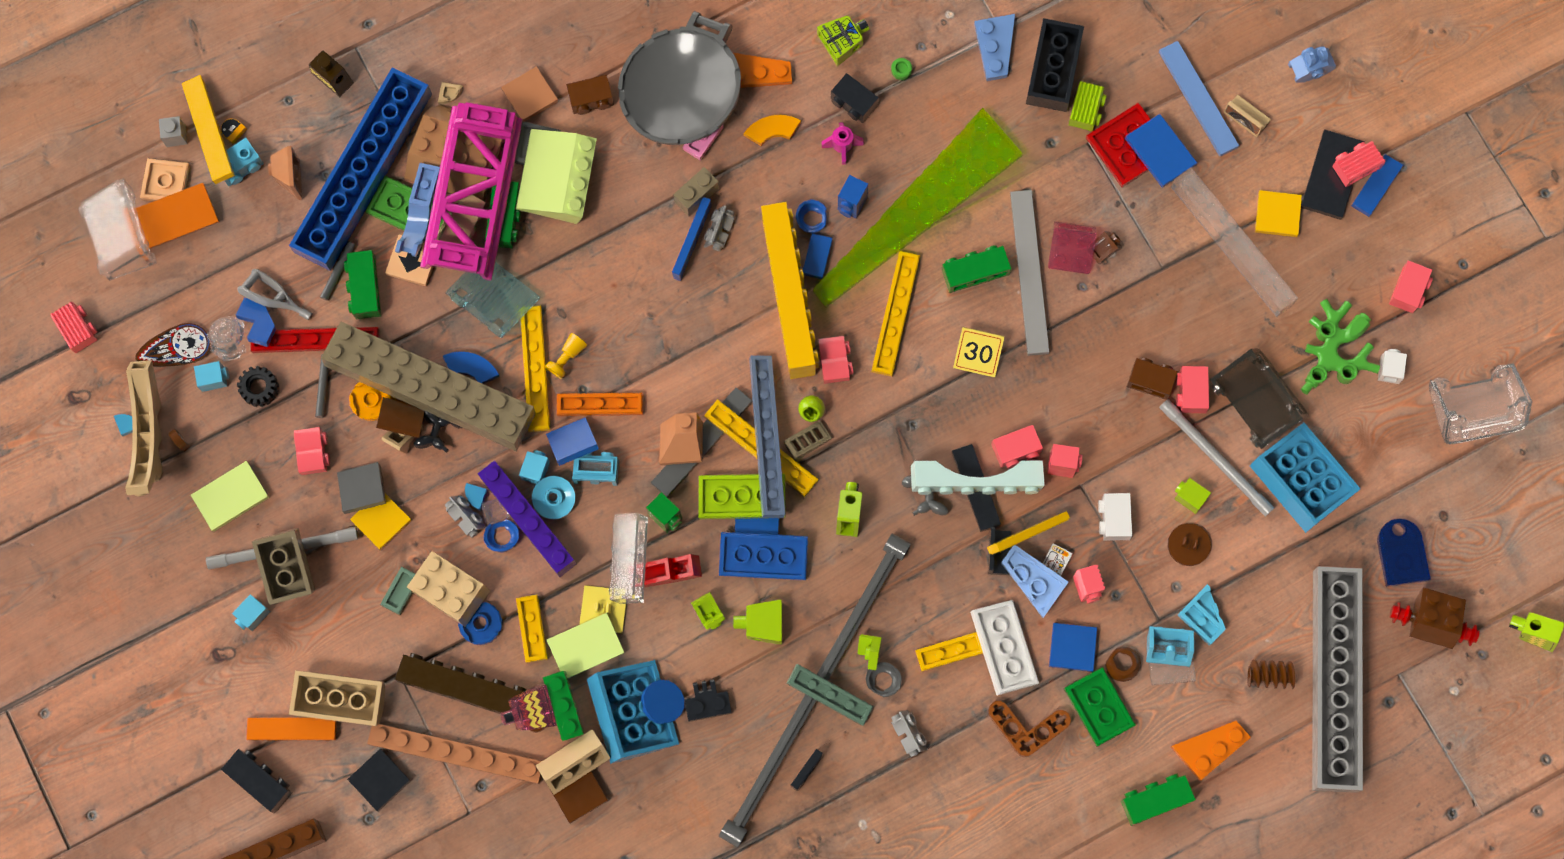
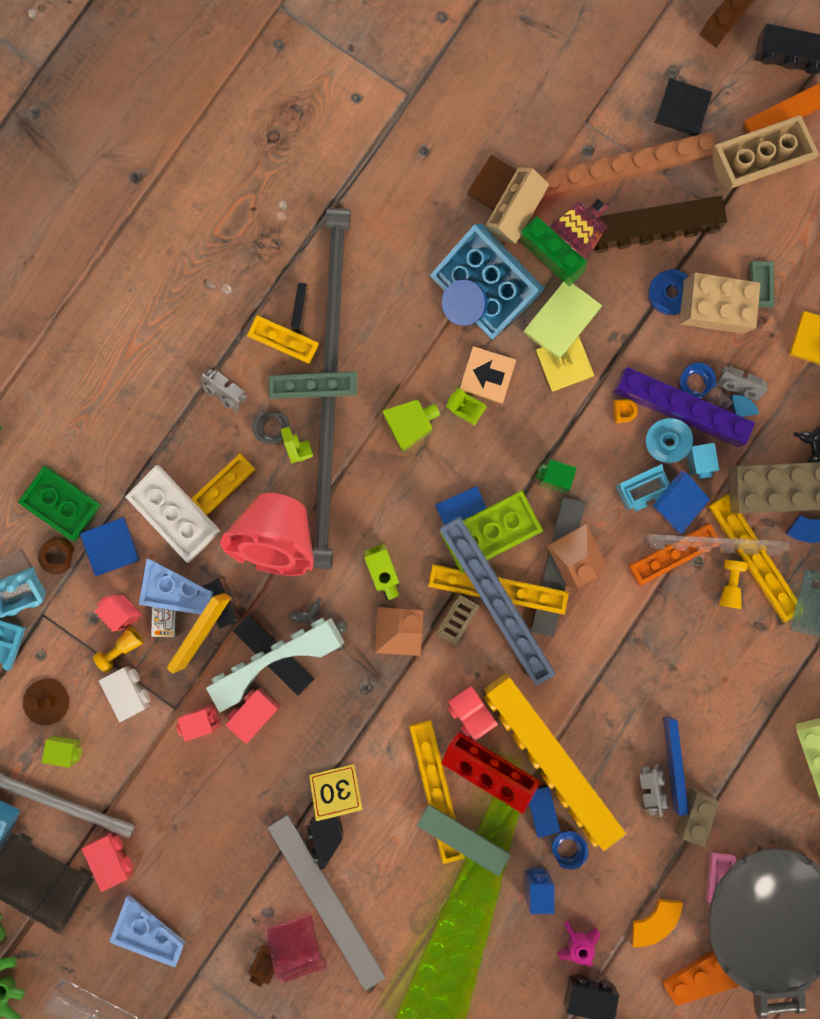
camera: 150 degrees right, 10 degrees up
(531, 628) = (621, 311): yellow tile -> none
(570, 397) = (726, 545): none -> clear plate
(575, 542) = (624, 410): none -> light orange tile
(628, 558) = (566, 417): clear brick -> none
(672, 570) = (525, 425): red slope -> none
(675, 631) = (487, 375): none -> light nougat tile
(707, 702) = (423, 325): black hinge -> none
(763, 555) = (442, 486): blue tile -> none
(811, 408) = (469, 652): lime piece -> none
(835, 750) = (283, 340): none -> yellow plate
(843, 305) = (490, 772): none -> red brick
(860, 455) = (399, 631): none -> nougat slope
(892, 265) = (464, 840): none -> sand green tile
(925, 580) = (272, 536): none -> coral cone
(976, 268) = (379, 878): green brick -> none
(1003, 319) = (327, 837): none -> black slope
(1022, 734) = (118, 440): dark orange beam -> none
(1098, 557) = (125, 643): none -> yellow piece
(1152, 378) = (153, 851): reddish brown brick -> none
(1189, 317) = (146, 934): none -> light blue wing

